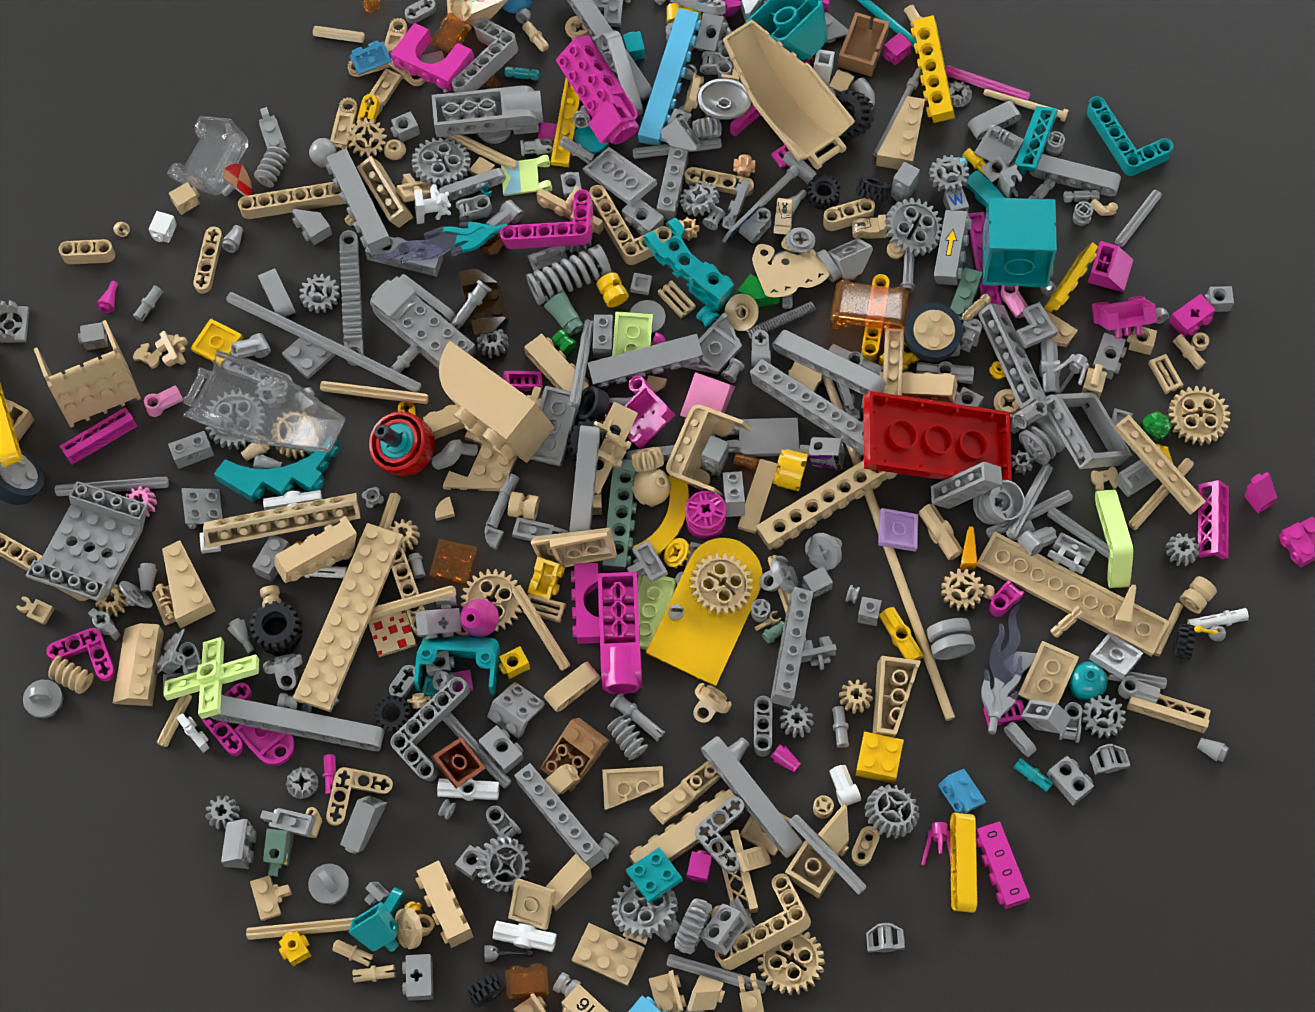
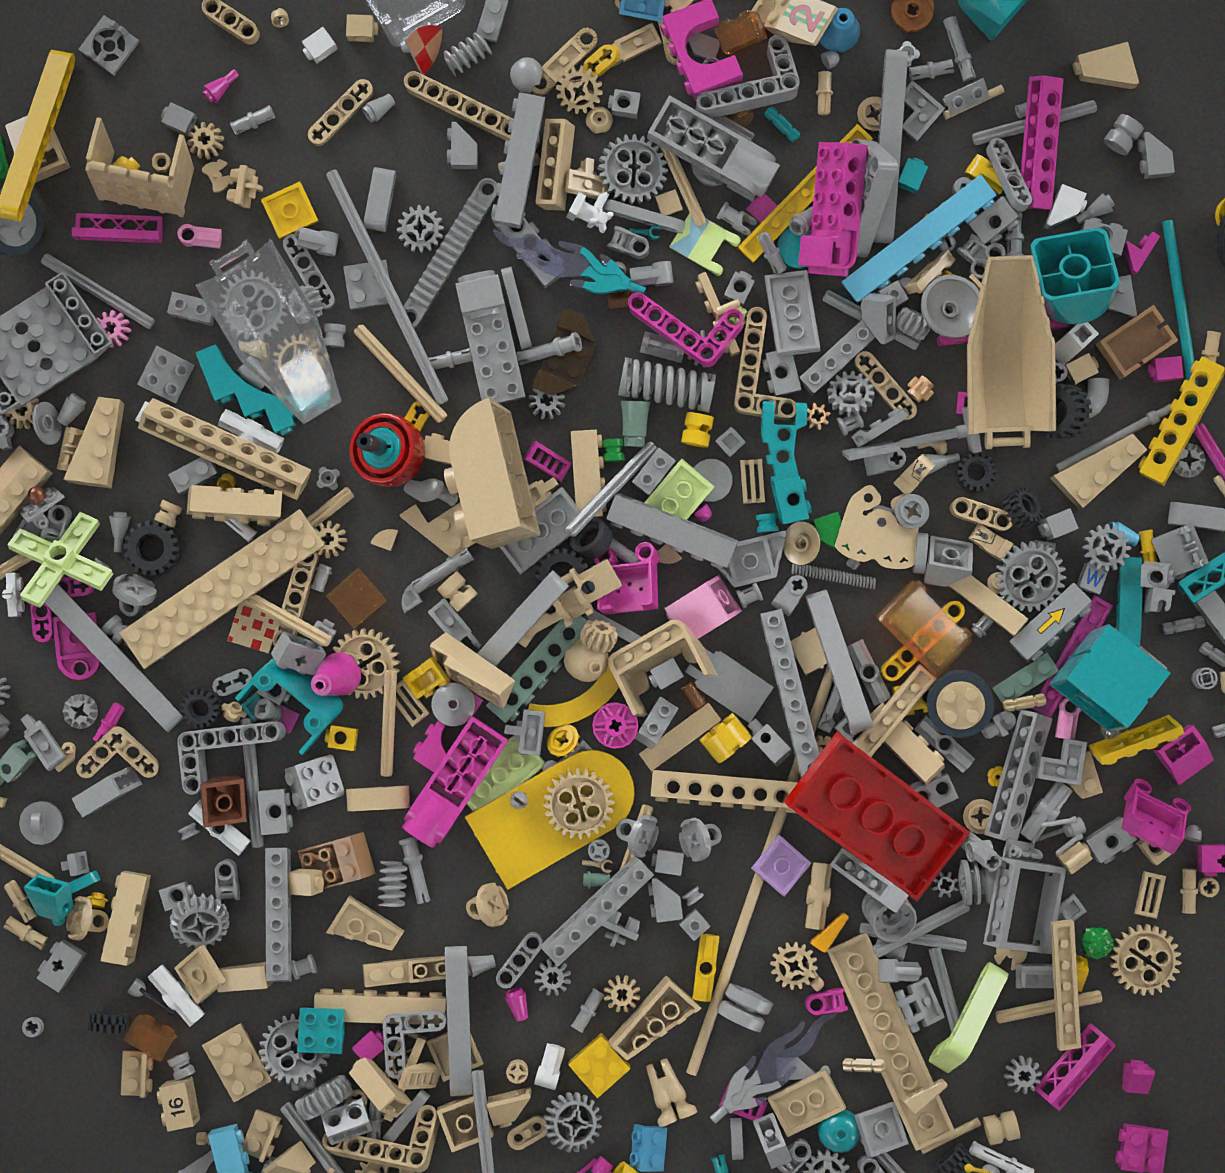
camera: 30 degrees right, 20 degrees up
(129, 336) = (199, 147): none -> tan gear
(161, 644) = (36, 495): none -> copper hinge
(578, 588) = (465, 704): none -> light grey dish
(730, 882) = (379, 1088): none -> tan slope
(766, 896) = (406, 1116): none -> light grey beam
(785, 191) = (939, 446): none -> tan arm
(836, 610) = (666, 902): none -> light grey slope
(900, 263) = (990, 604): none -> tan tile
(944, 740) = (666, 1091): none -> tan piece

